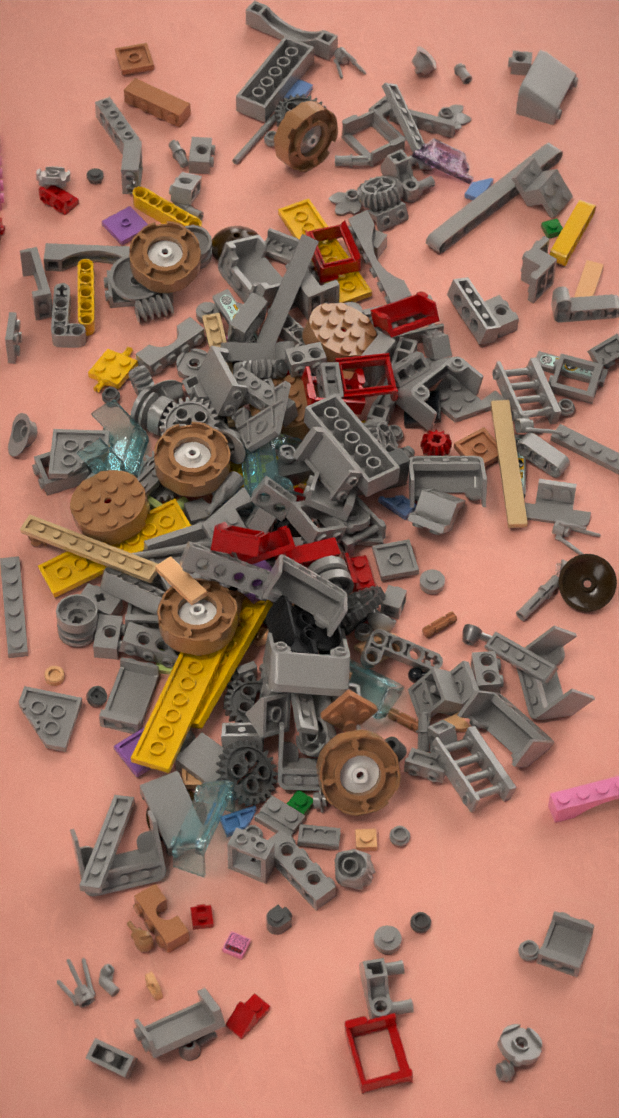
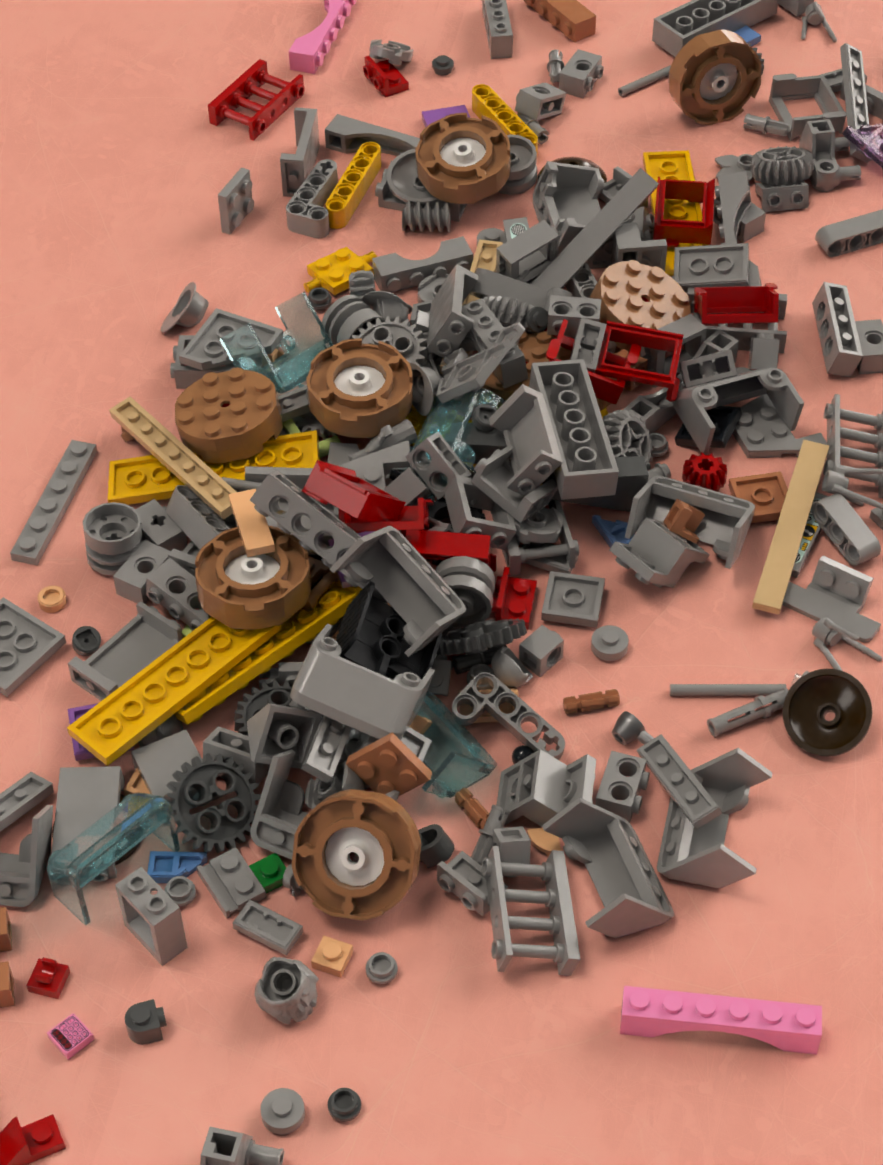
camera: 25 degrees right, 5 degrees down
(131, 165) = (484, 62): light grey window -> none
(315, 895) = (225, 1006): light grey brick -> none
(373, 289) = (712, 266): none -> light grey tile
(440, 483) = (684, 520): none -> nougat panel
(516, 588) = (724, 689): none -> light grey bar

